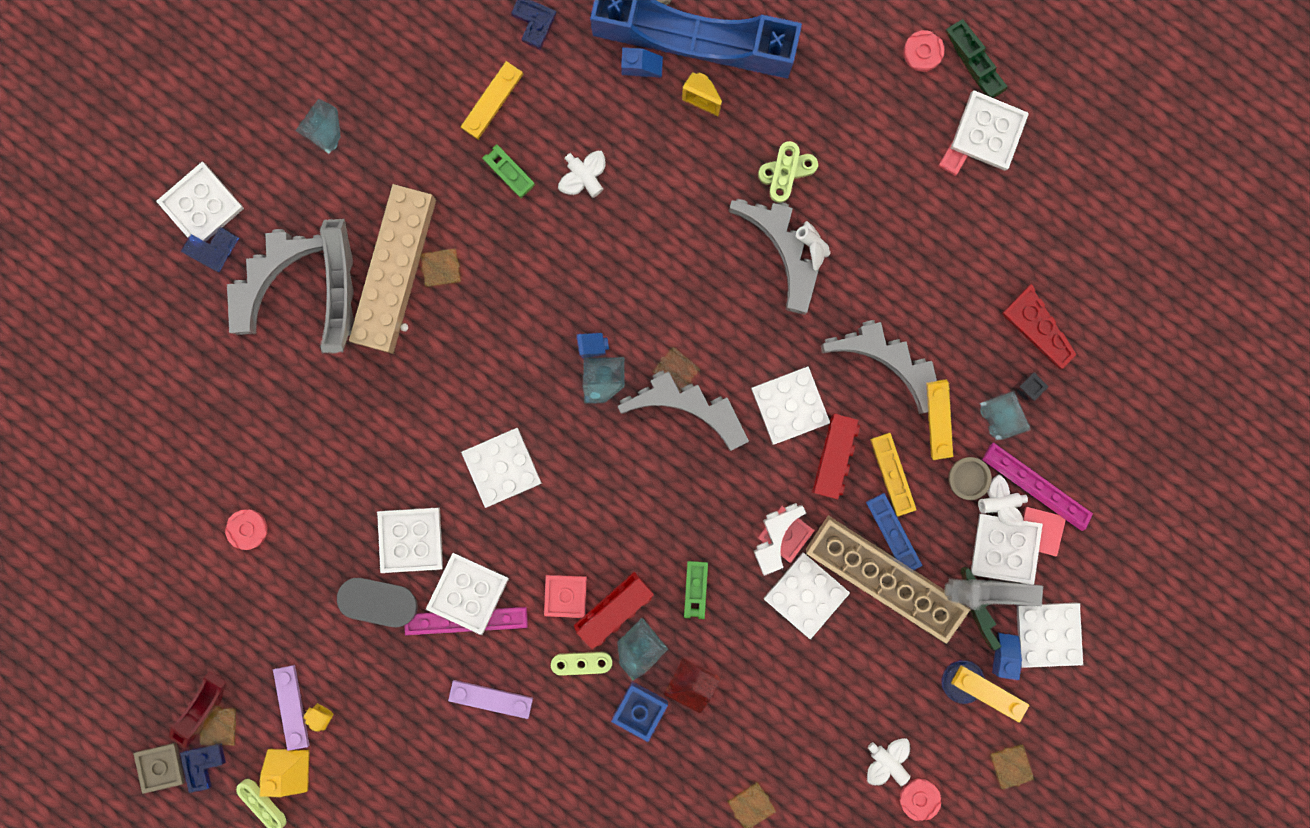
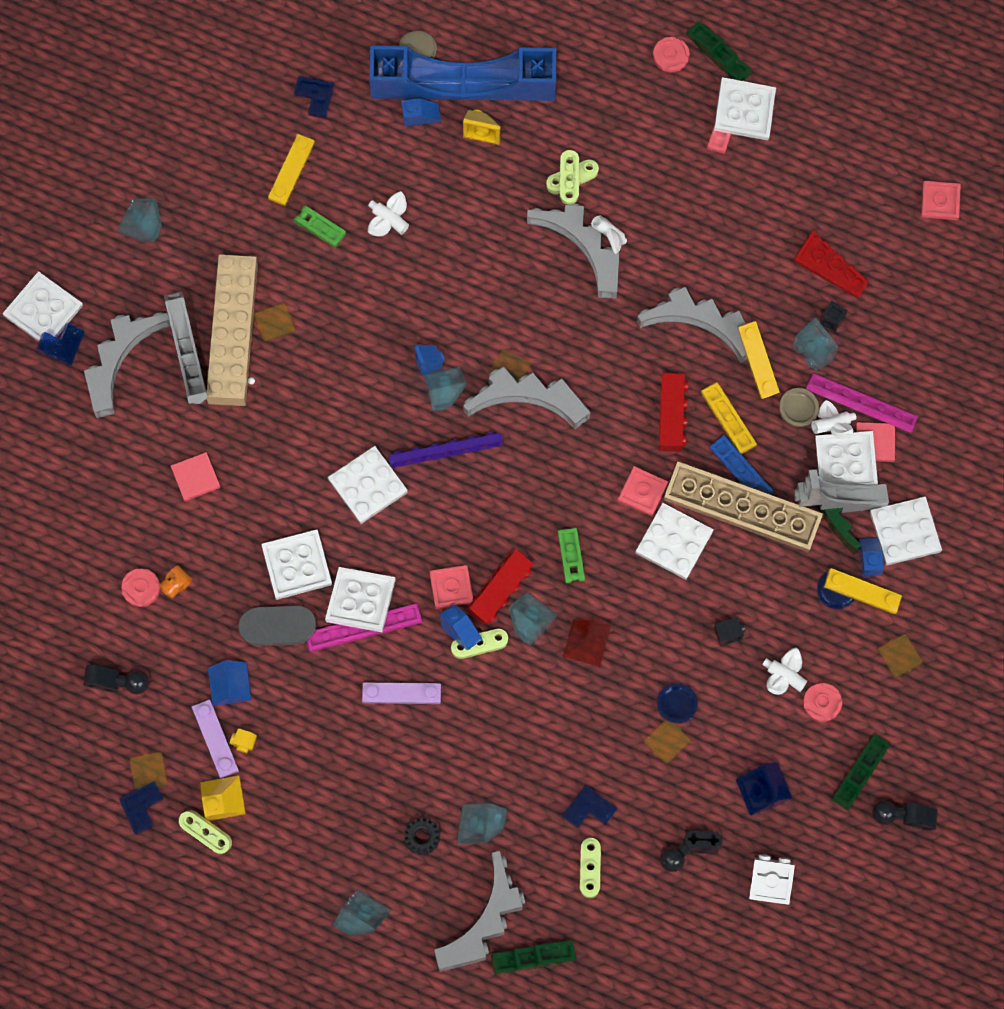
camera: 15 degrees left, 15 degrees down
(159, 767) = (101, 818): dark tan plate -> none
(195, 624) = (110, 679): none -> black beam
(202, 705) = (134, 747): dark red arch -> none
(280, 534) = (175, 582): none -> orange piece
(317, 652) = (229, 682): none -> blue slope
(325, 421) = (195, 476): none -> coral tile
(563, 648) = (459, 627): none -> blue slope
(581, 447) = (439, 451): none -> dark purple plate
(639, 711) = (543, 670): blue brick -> none
(770, 772) = (677, 703): none -> clear blue piece
(776, 524) = (630, 507): white arch -> none
(790, 405) = (621, 378): white plate -> none
(842, 707) = (729, 631): none -> black brick
(1174, 276) = (940, 200): none -> coral tile

